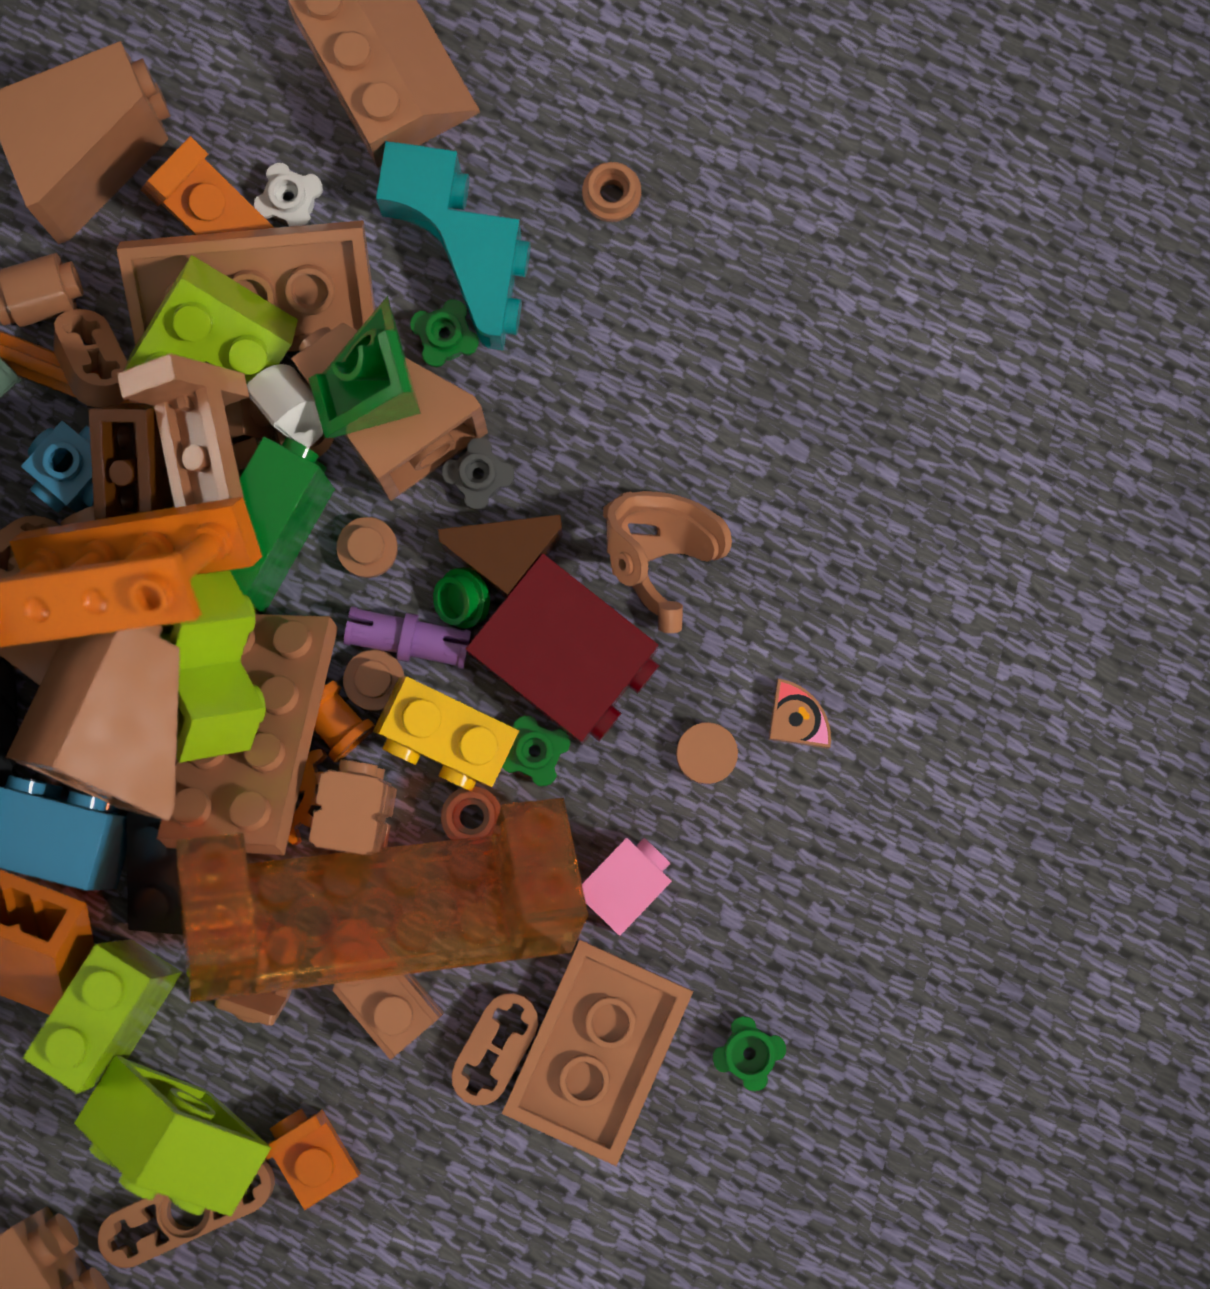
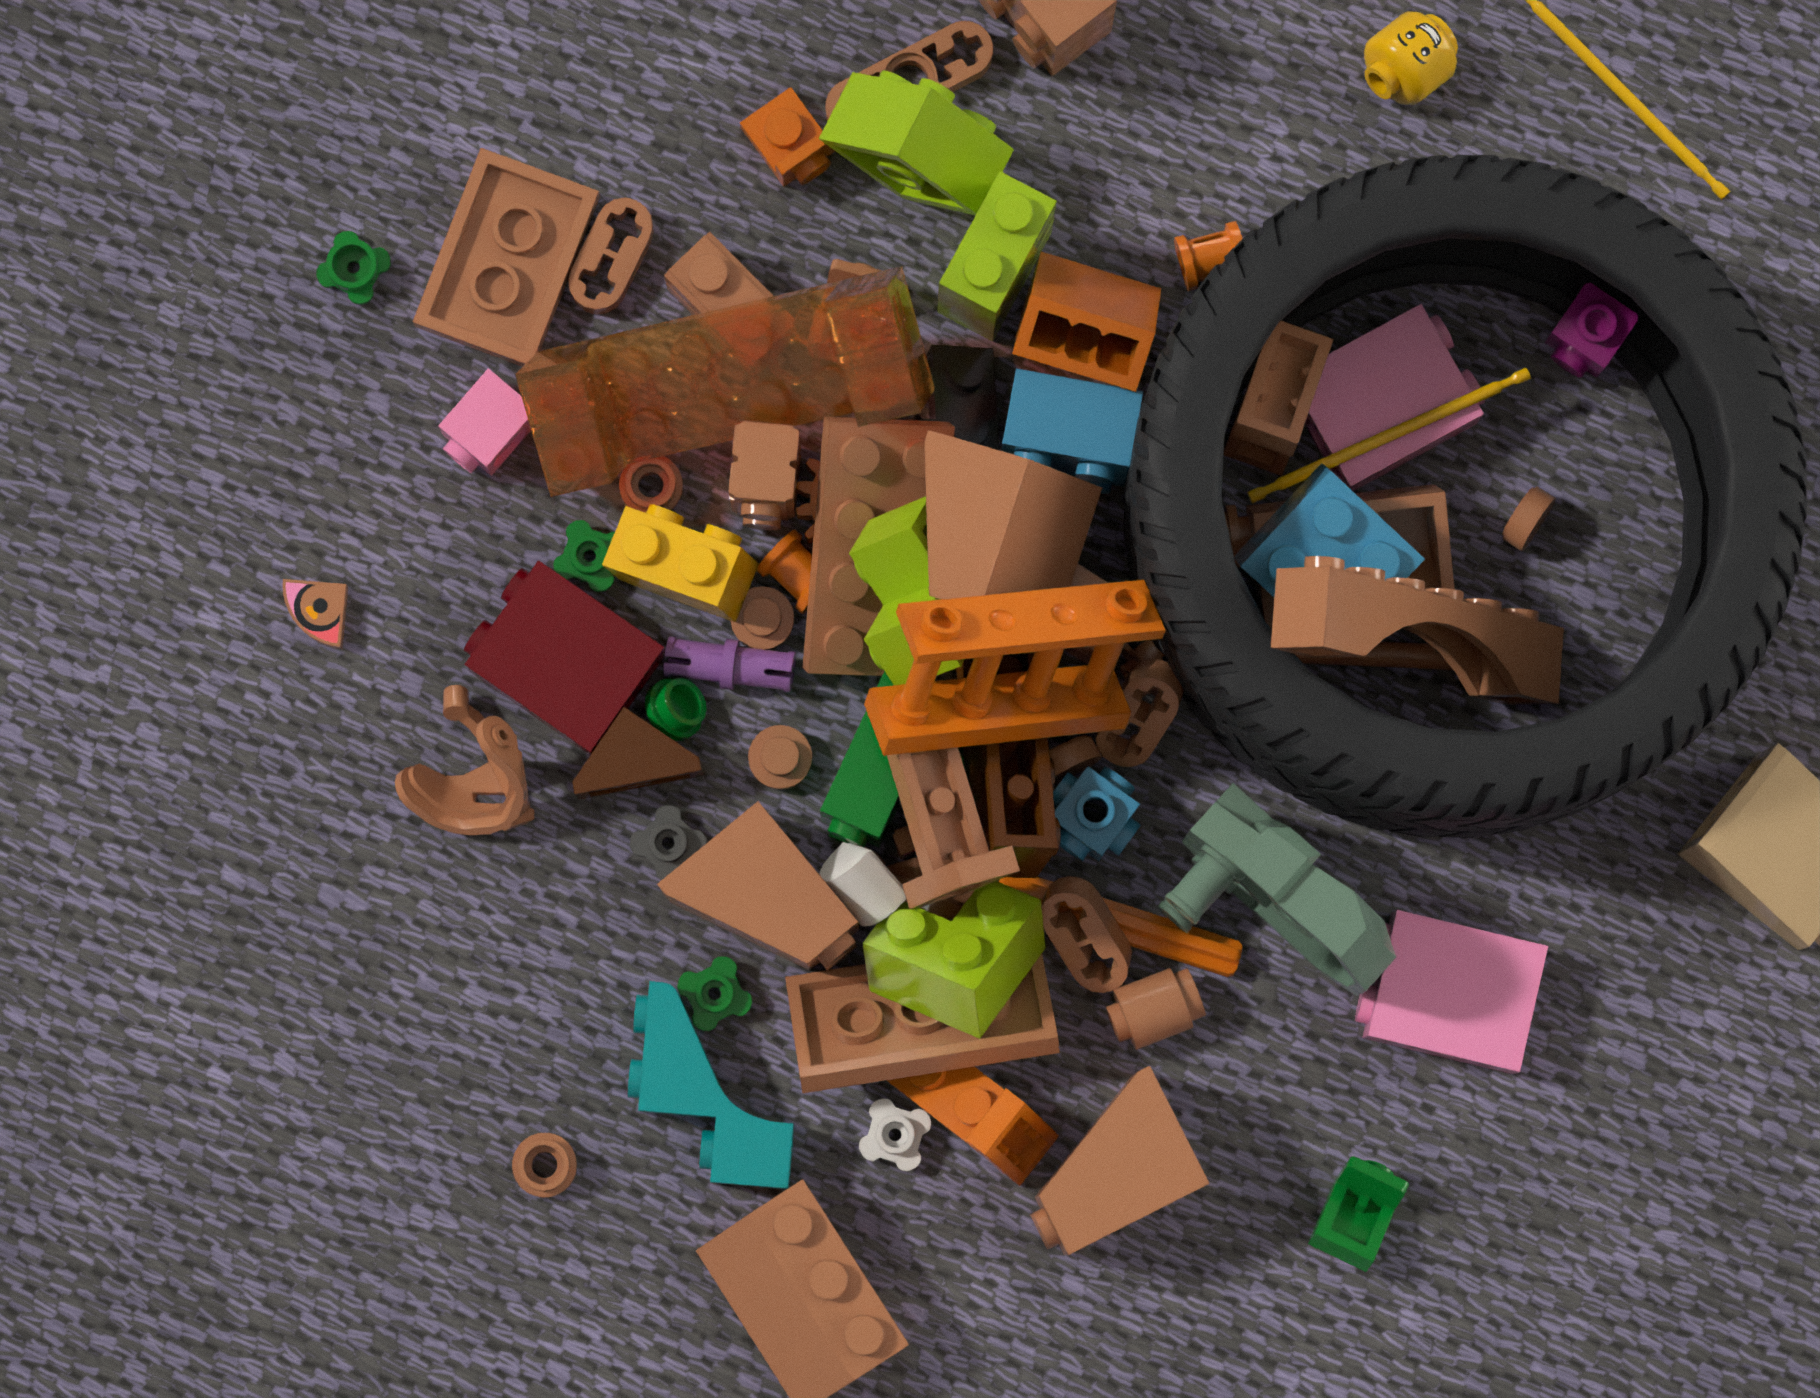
camera: 175 degrees right, 0 degrees up
(366, 380) = (775, 901): green slope -> none
(707, 753) = (411, 566): nougat tile -> none

